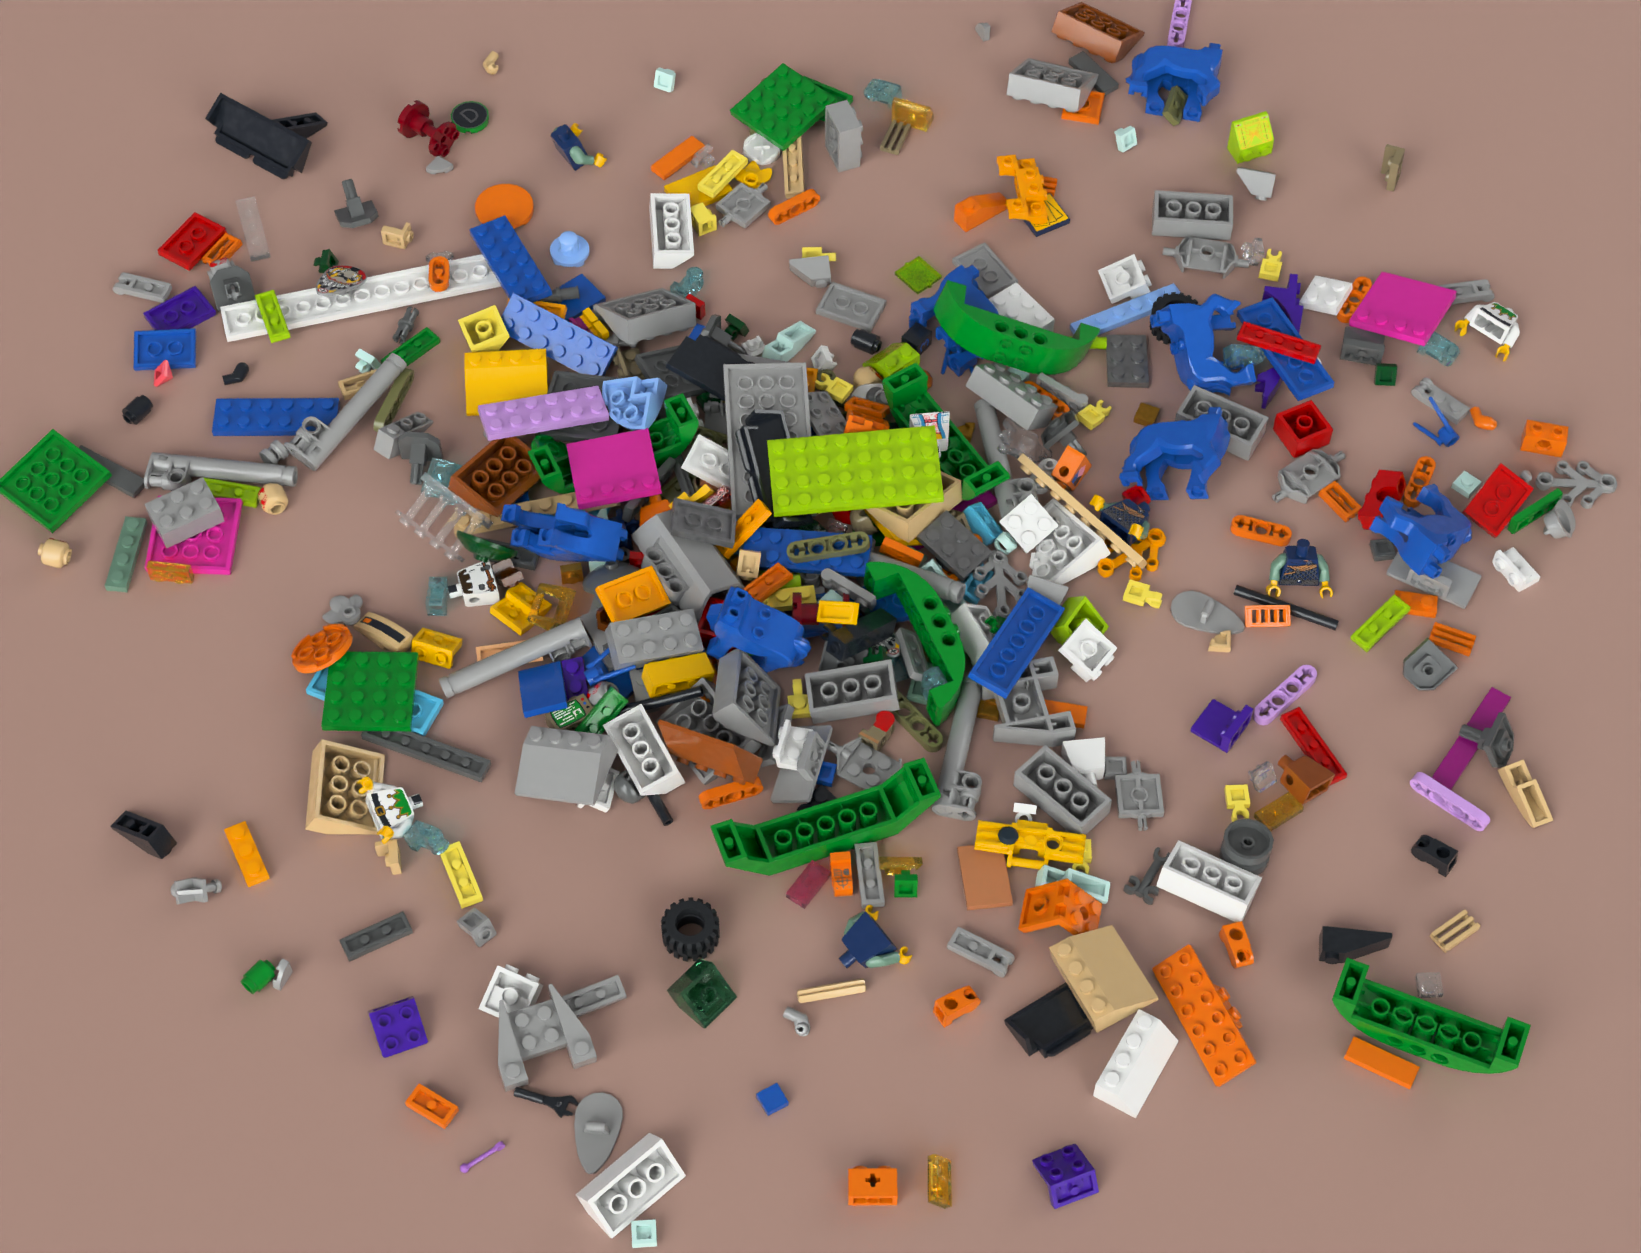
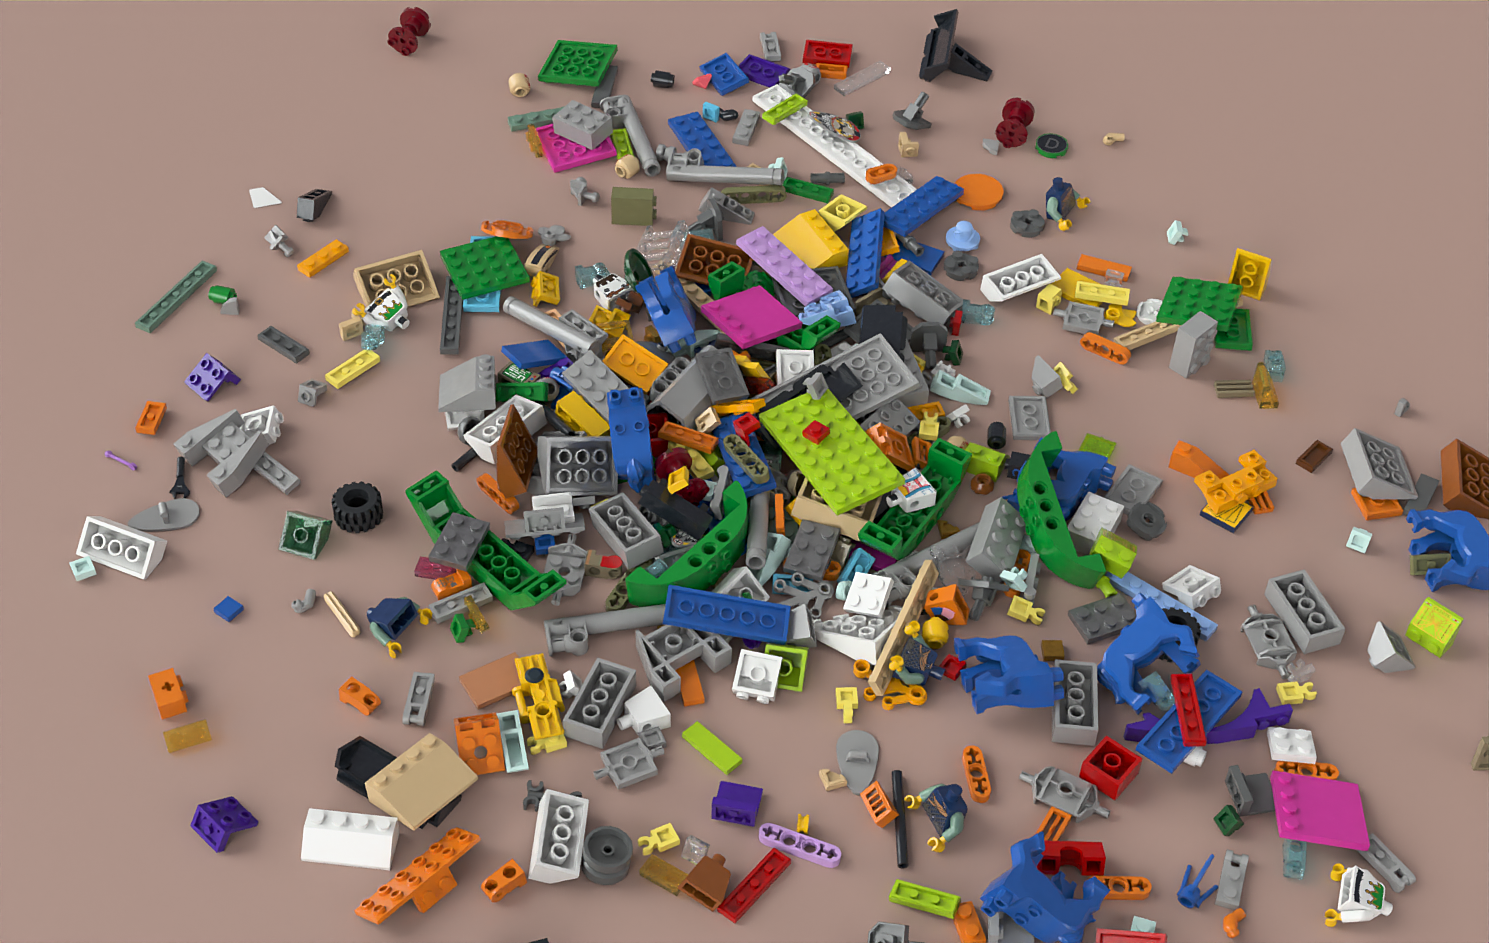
camera: 65 degrees right, 10 degrees down
(89, 890) = (262, 197): none -> white sticker
(224, 1030) = (175, 297): none -> sand green tile
(227, 386) = (711, 112): none -> medium azure tile
(270, 365) = (746, 127): none -> light grey plate
(289, 556) = (579, 189): none -> light grey piece
(356, 515) = (633, 206): none -> olive brick
(533, 626) = (583, 325): none -> light grey slope
(577, 180) = (1021, 218): none -> dark grey plate
(609, 260) = (969, 266): none -> dark grey plate
(767, 52) = (1250, 272): none -> yellow slope
(776, 446) = (816, 385): none -> light grey tile
(792, 528) = (746, 425): none -> red panel
(807, 841) = (459, 541): none -> flat silver plate
(836, 471) = (816, 432): none -> red plate
(1008, 121) = (1314, 456): none -> reddish brown tile
(1032, 276) = (1144, 529): none -> dark grey plate
(1068, 403) = (1015, 579): none -> light aqua tile
(1070, 312) = (1115, 552): none -> lime slope
(1089, 489) = (935, 632): none -> yellow head
(1146, 722) = (712, 748): none -> lime tile
(1266, 682) = (802, 823): none -> yellow bush

